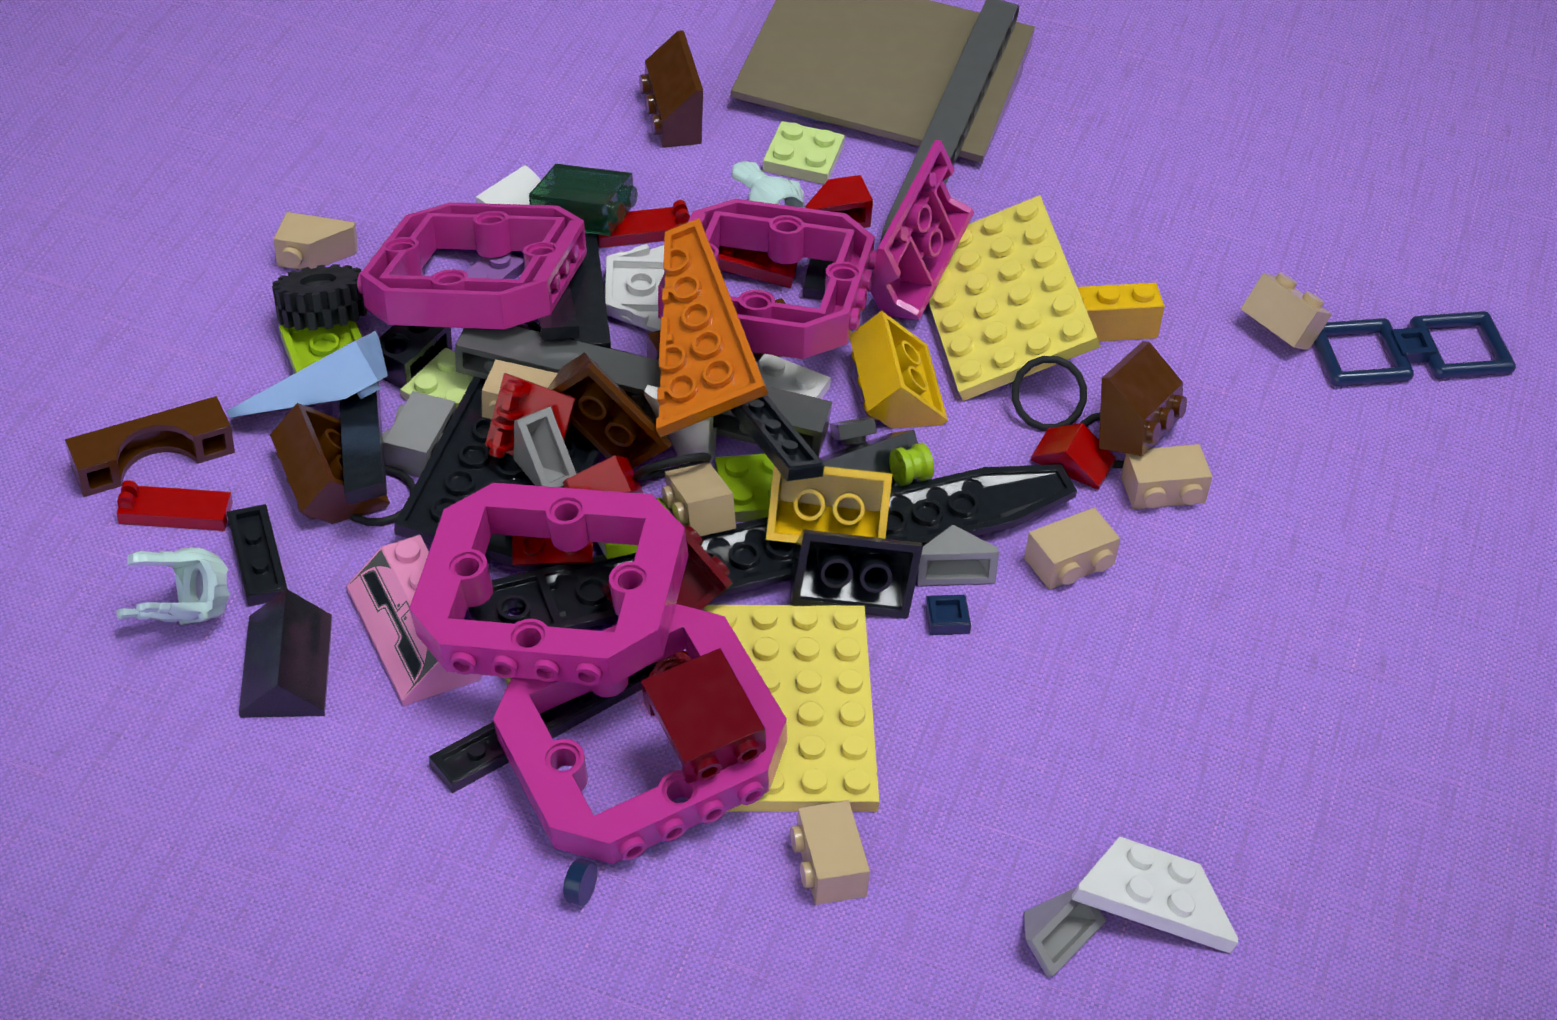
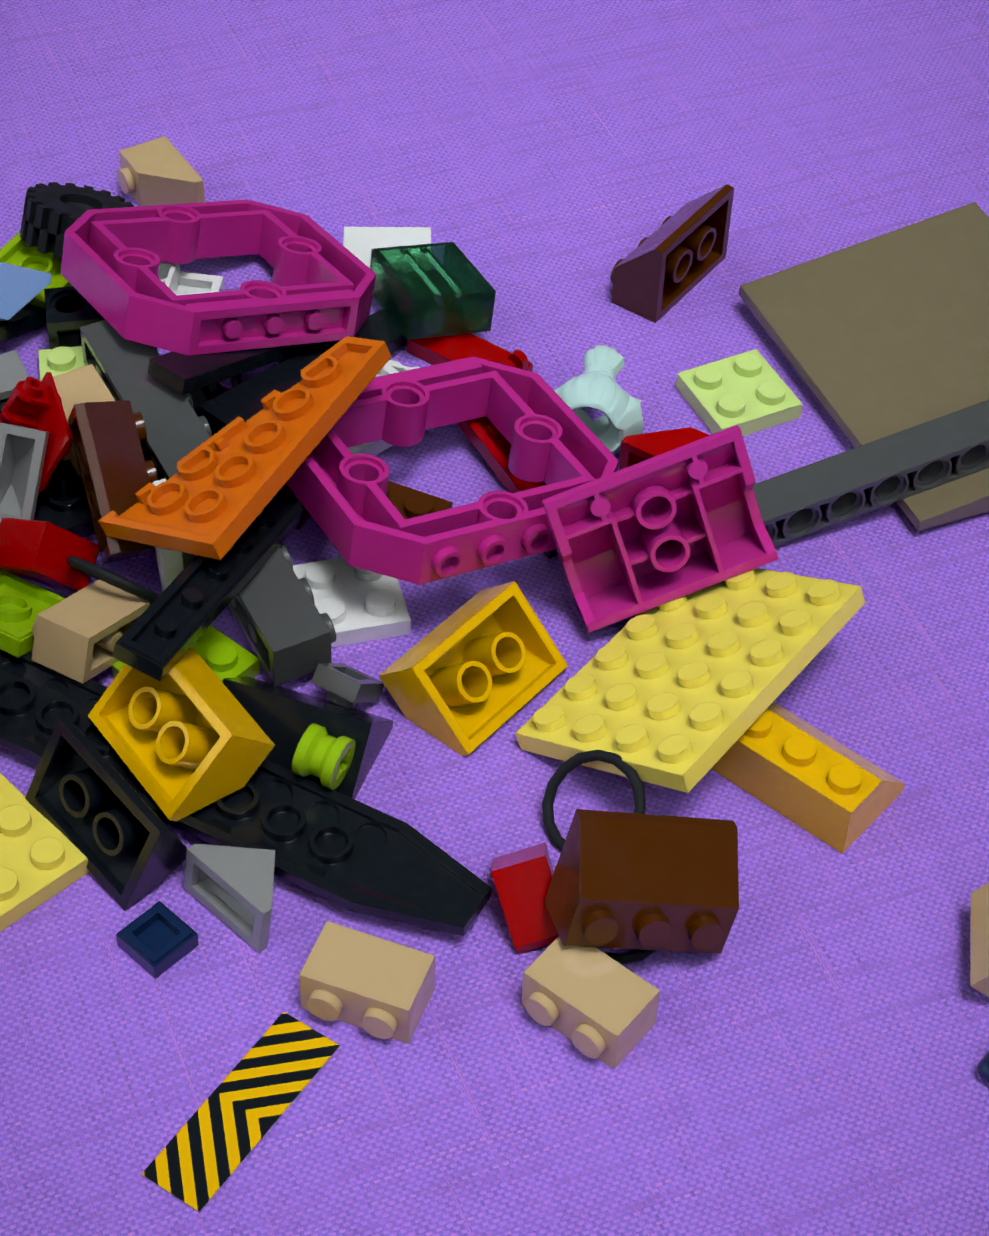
camera: 50 degrees right, 0 degrees up
(1093, 651) = (240, 1111): none -> sticker

